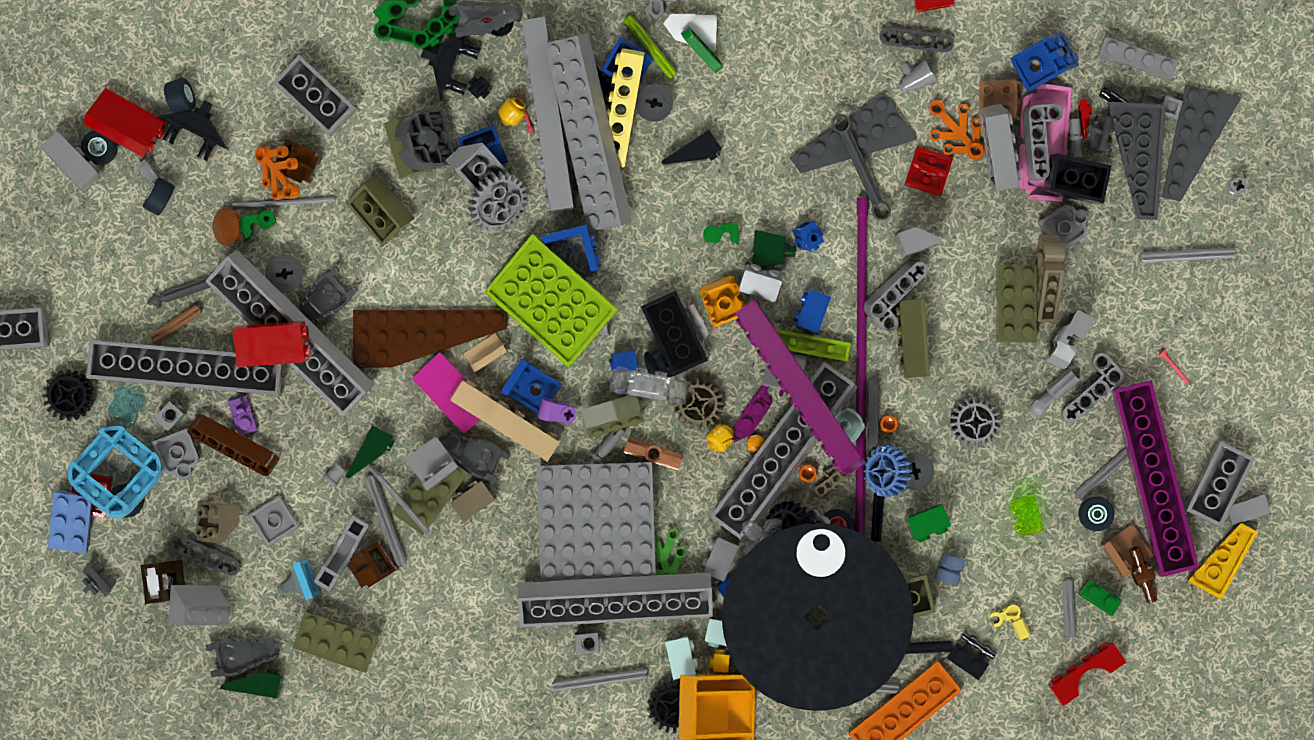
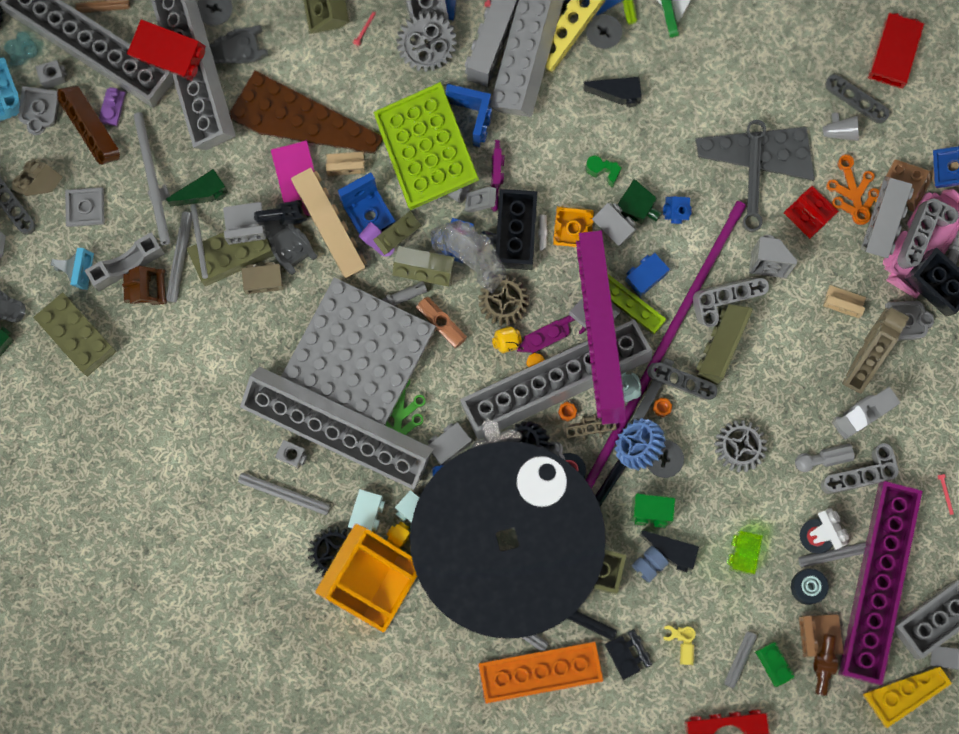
camera: 30 degrees right, 10 degrees down
(321, 464) = (151, 178): none -> light grey piece
(430, 231) = (357, 41): none -> coral piece
(460, 435) = (285, 212): none -> black connector
(570, 395) = (397, 232): none -> olive plate
(627, 323) = (480, 199): none -> light grey plate
(630, 292) = (496, 176): none -> magenta plate
(894, 393) = (683, 378): none -> dark grey beam
(965, 546) = (675, 551): none -> black slope
(1000, 239) = (844, 302): none -> tan panel
(1016, 303) = (831, 362): olive brick -> none
(1086, 460) = (823, 533): none -> plate

